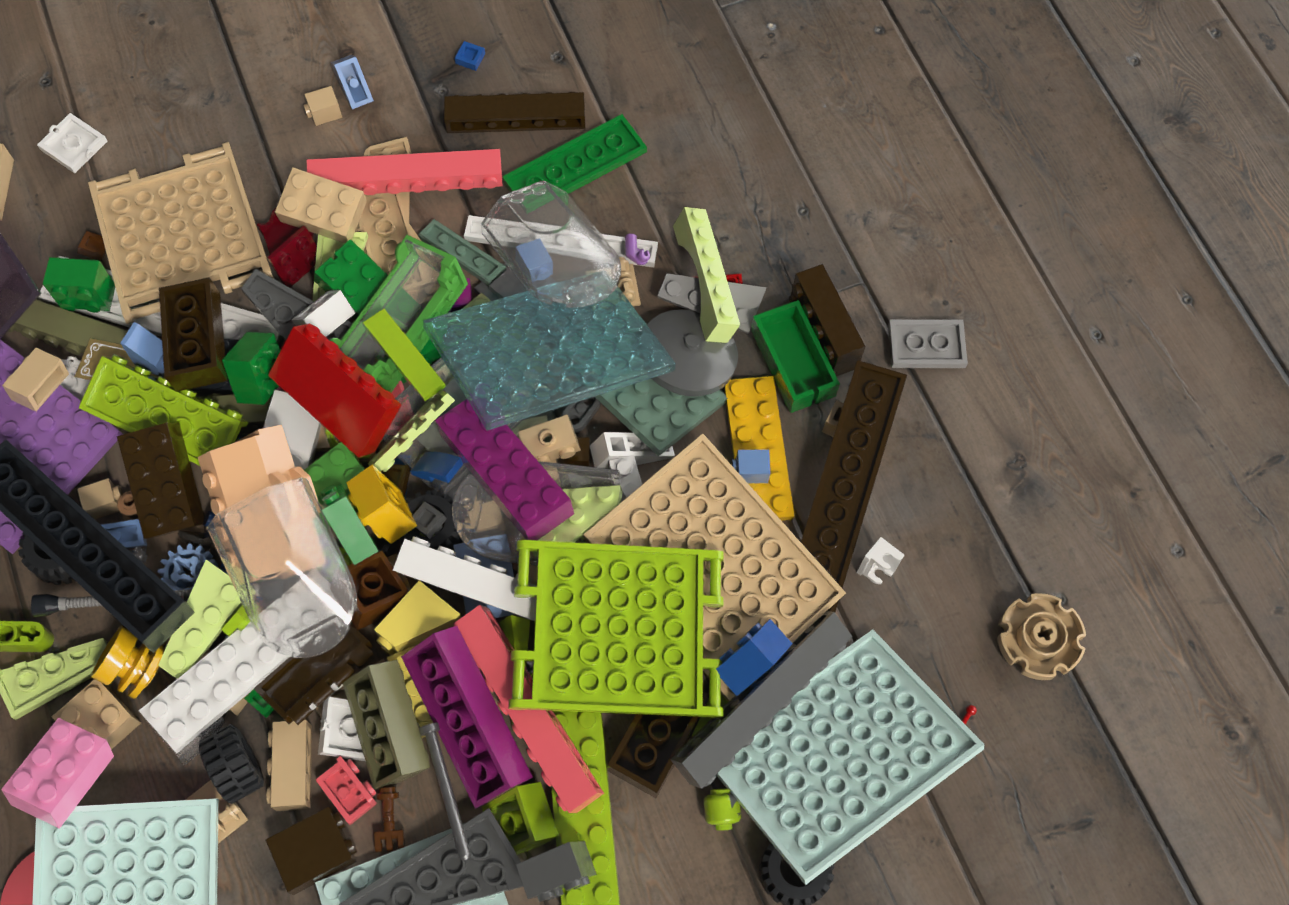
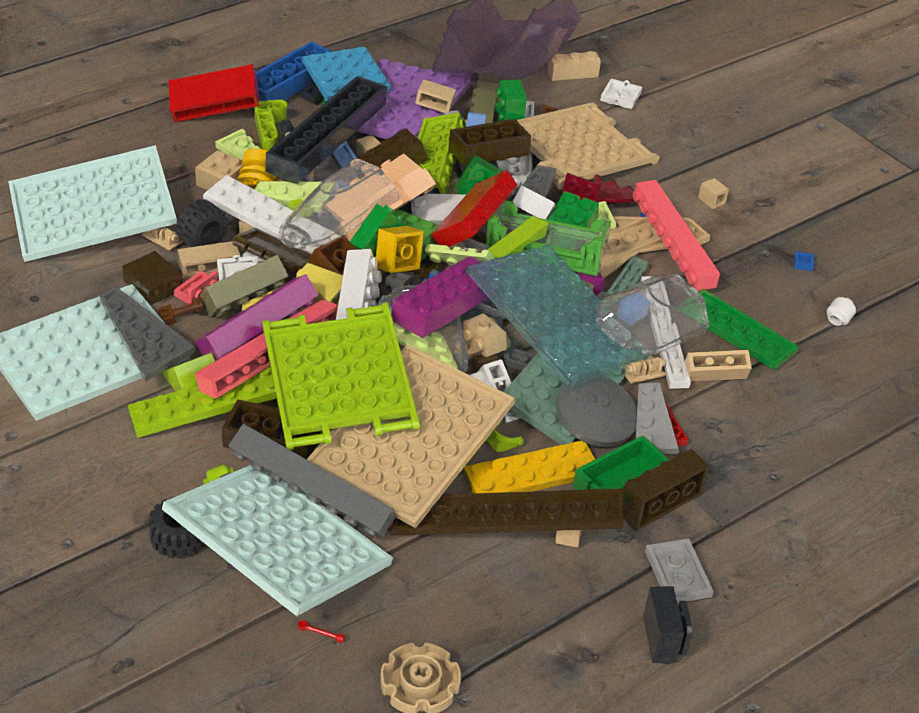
camera: 75 degrees right, 25 degrees down
(58, 772) = (178, 146): bright pink brick -> none
(321, 205) = (619, 189): tan brick -> none
(352, 81) = (742, 202): medium blue slope -> none
(446, 789) = (241, 302): flat silver bar -> none
(514, 112) = (765, 289): dark brown brick -> none
(559, 868) = (153, 378): dark grey brick -> none
(573, 51) = (841, 311): none -> white head
(633, 253) = (672, 365): medium lavender arm -> none
(642, 203) = (718, 365): none -> tan brick
(718, 310) = (641, 410): yellowish green arch -> none
(753, 465) = (508, 455): medium blue brick -> none
(756, 654) = (341, 455): blue brick -> none
(881, 557) = (454, 546): white hinge -> none
(1012, 377) = (666, 625): none -> black brick

